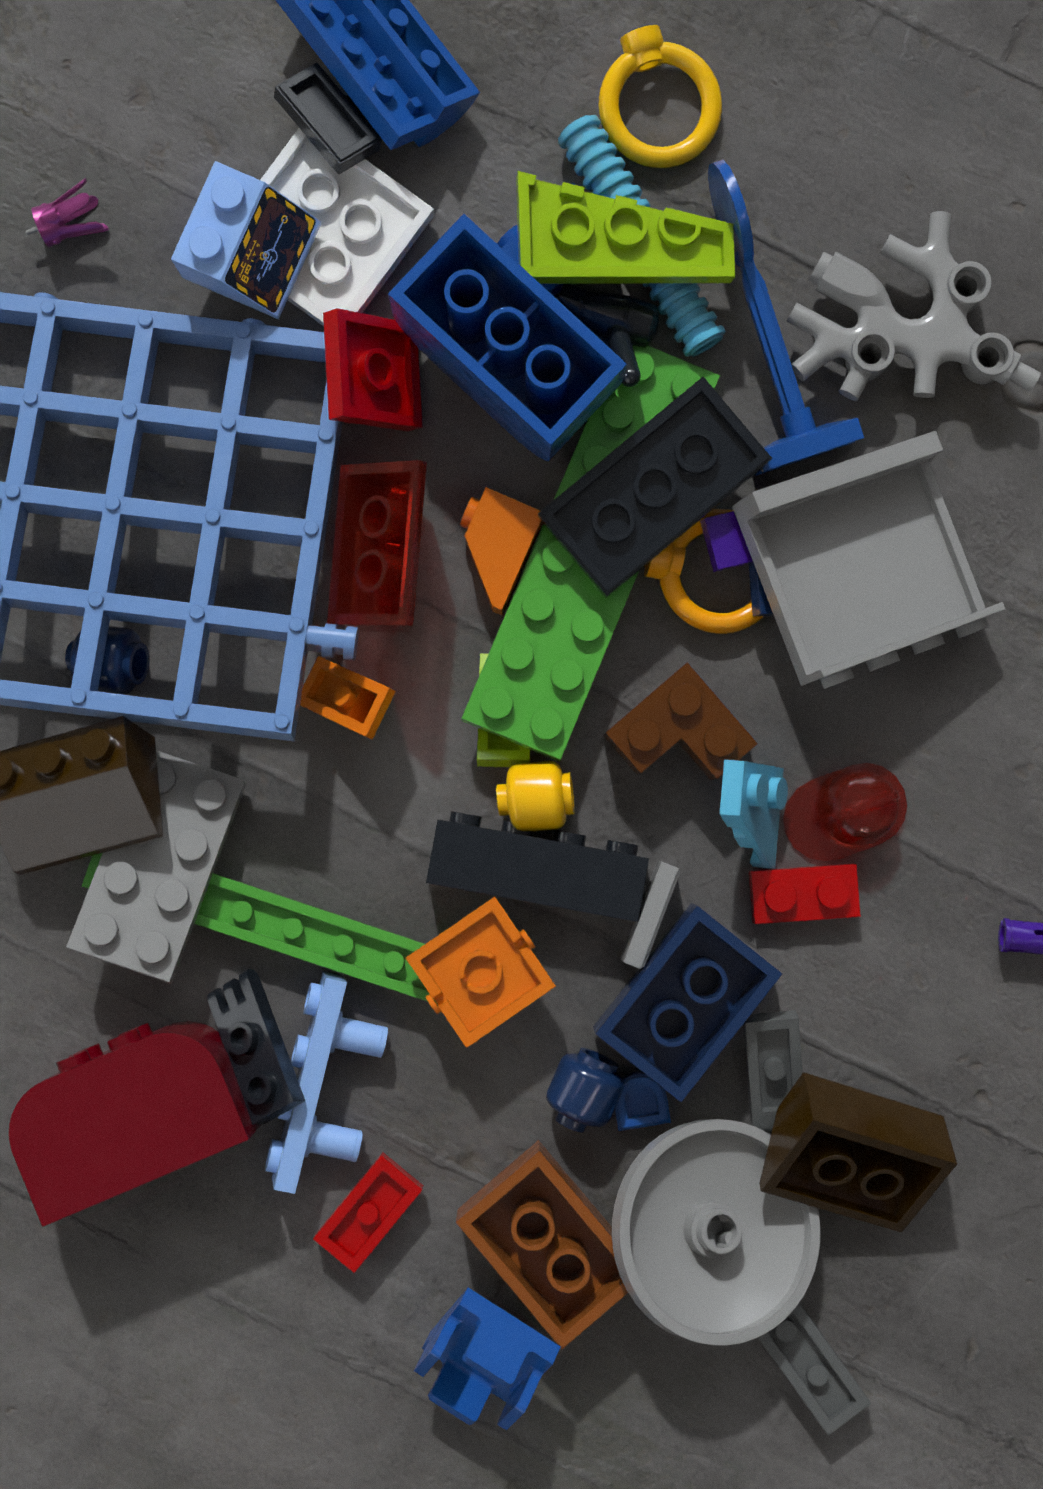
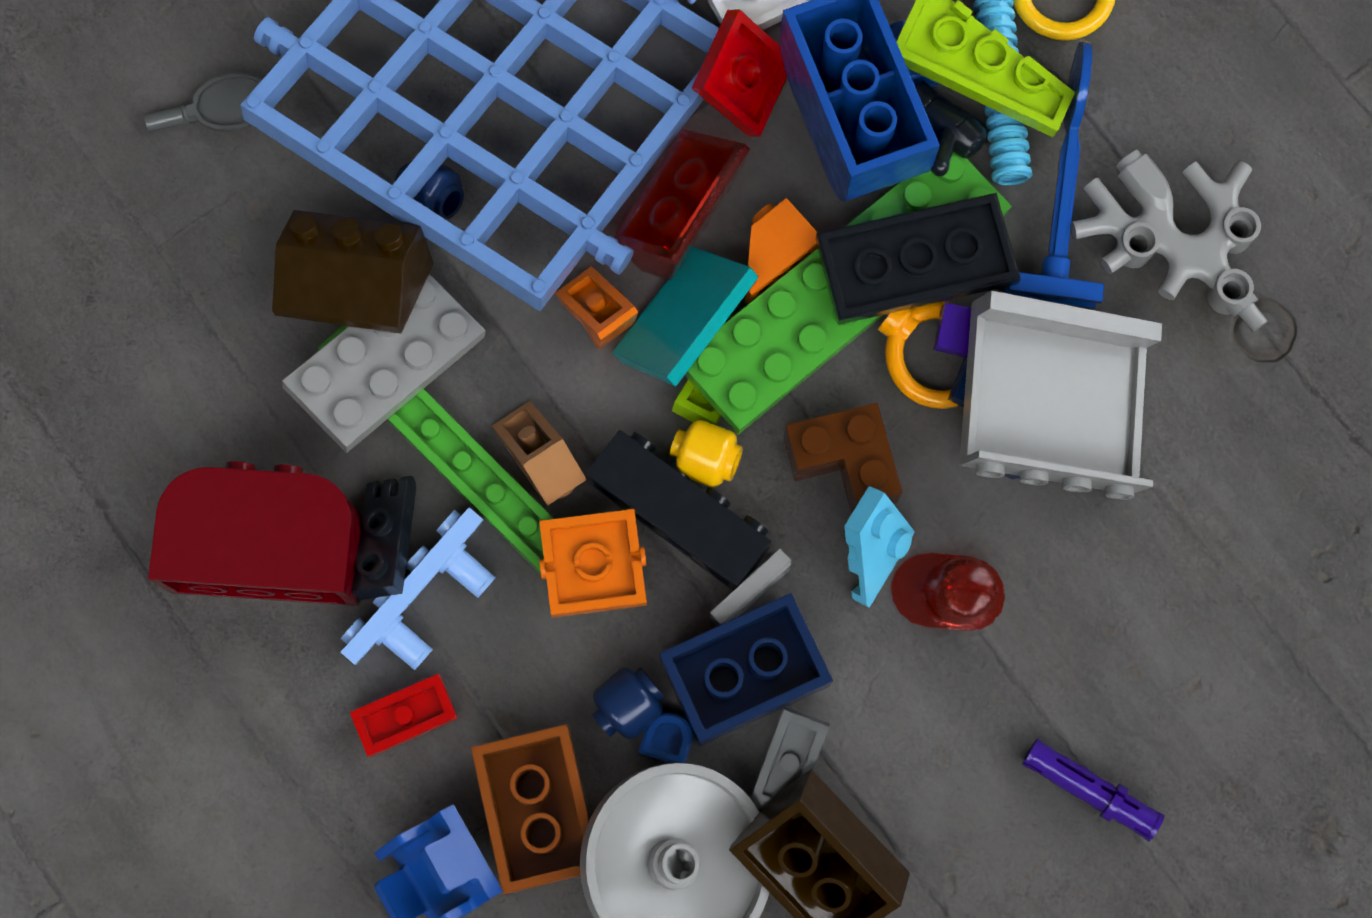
camera: 30 degrees right, 10 degrees down
(365, 880) = (539, 453): none -> medium nougat slope
(444, 665) = (685, 316): none -> teal tile
(804, 893) = (883, 639): red plate -> none

